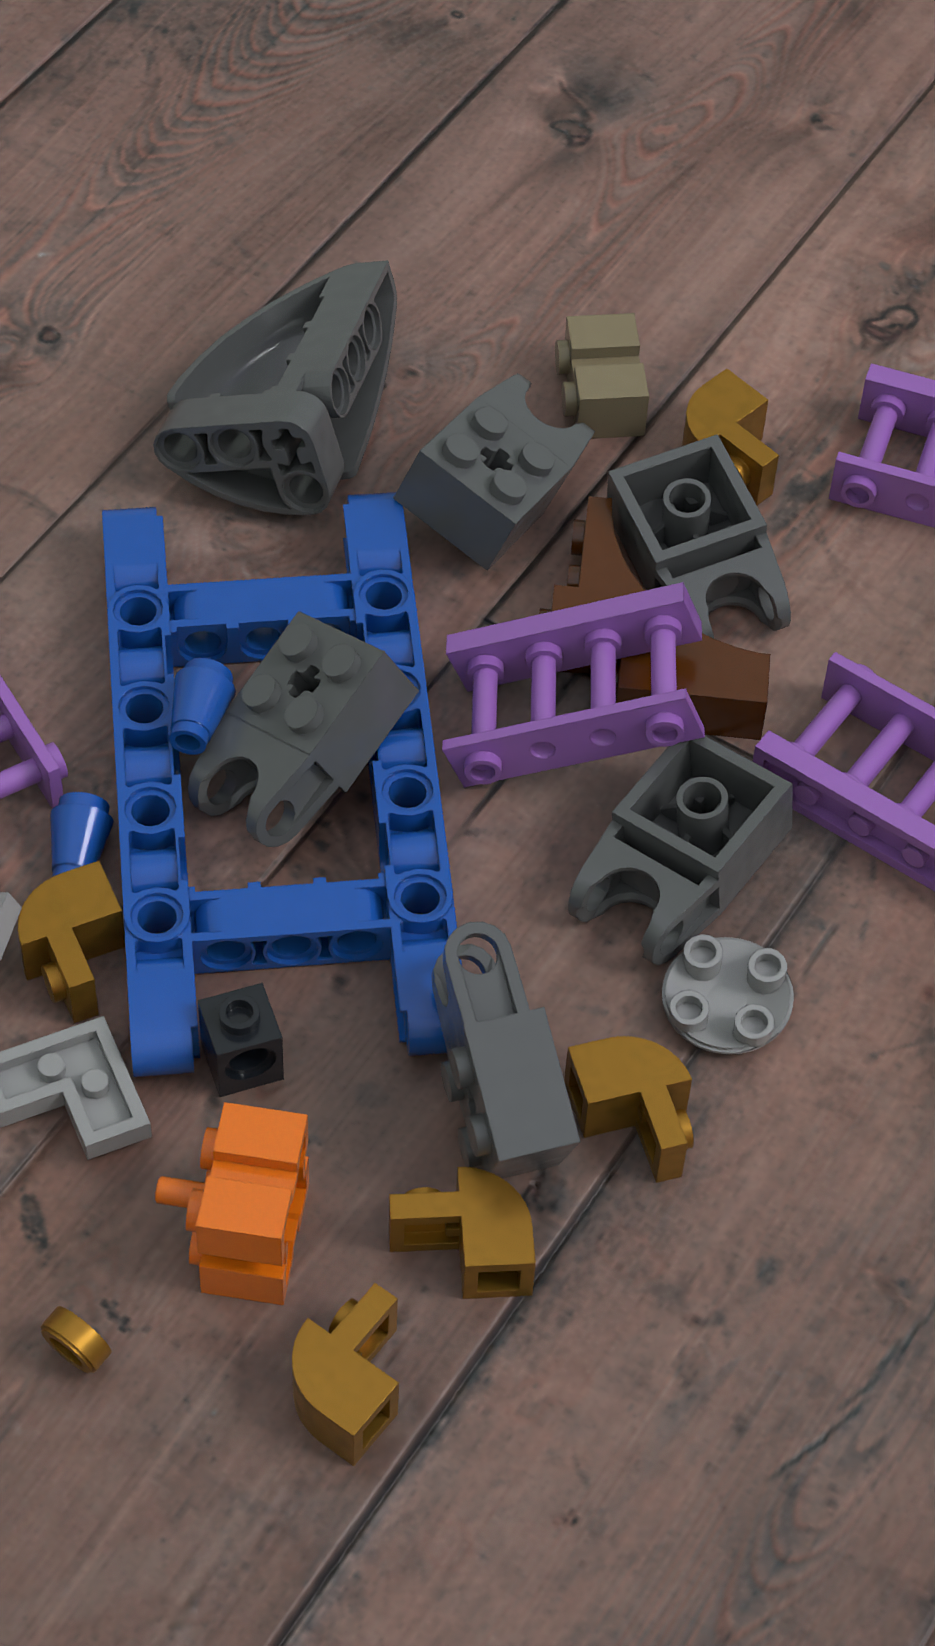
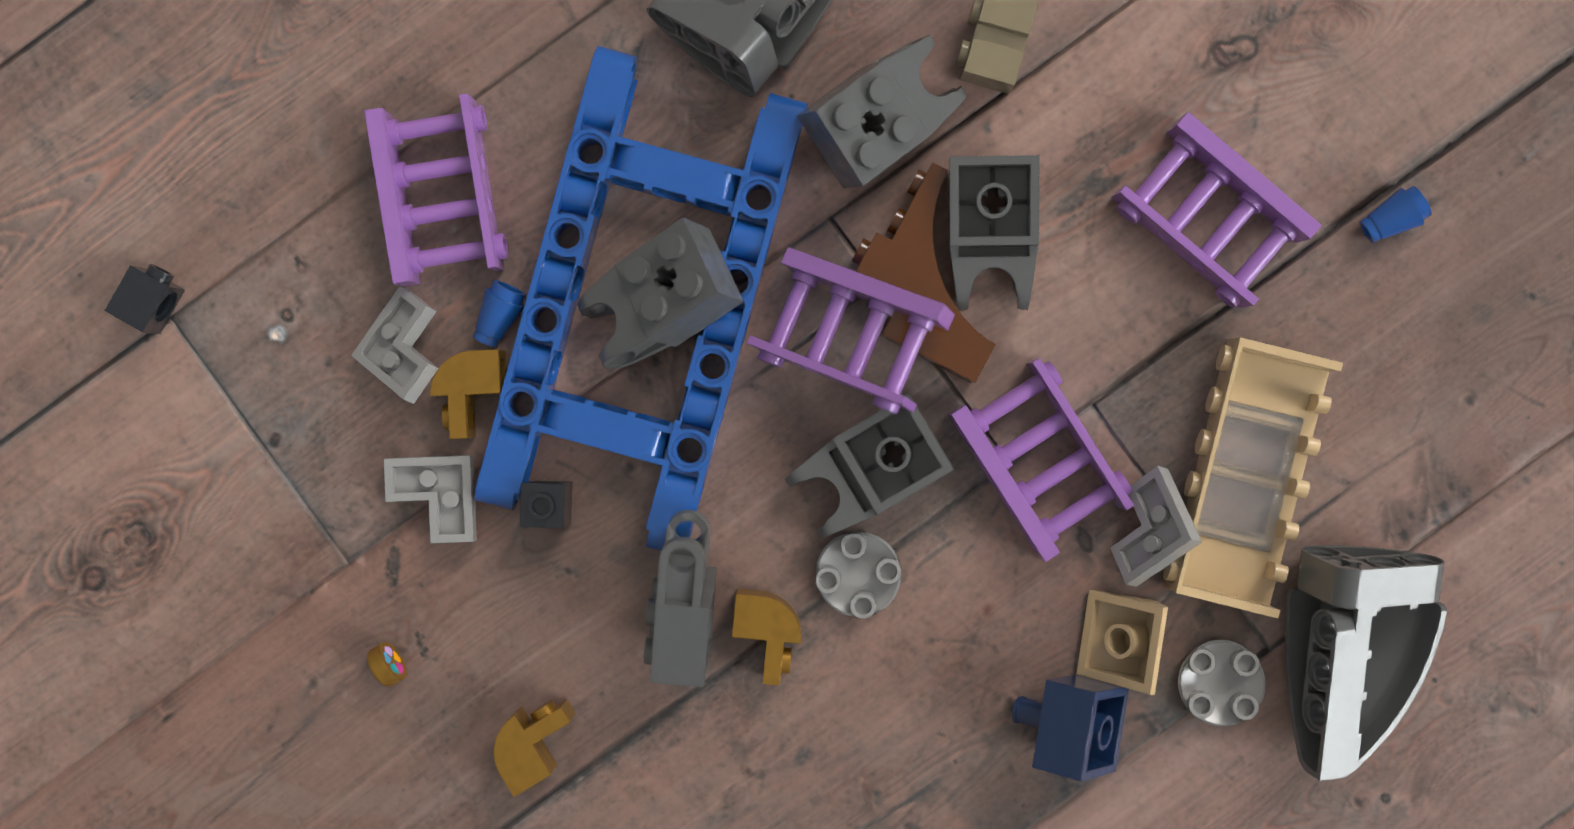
camera: 25 degrees right, 35 degrees up
(199, 703) = (598, 255): blue cone -> none
(249, 1203) = (504, 628): orange brick -> none
(481, 1220) = (642, 700): pearl gold brick -> none
(738, 417) = (1051, 121): pearl gold brick -> none

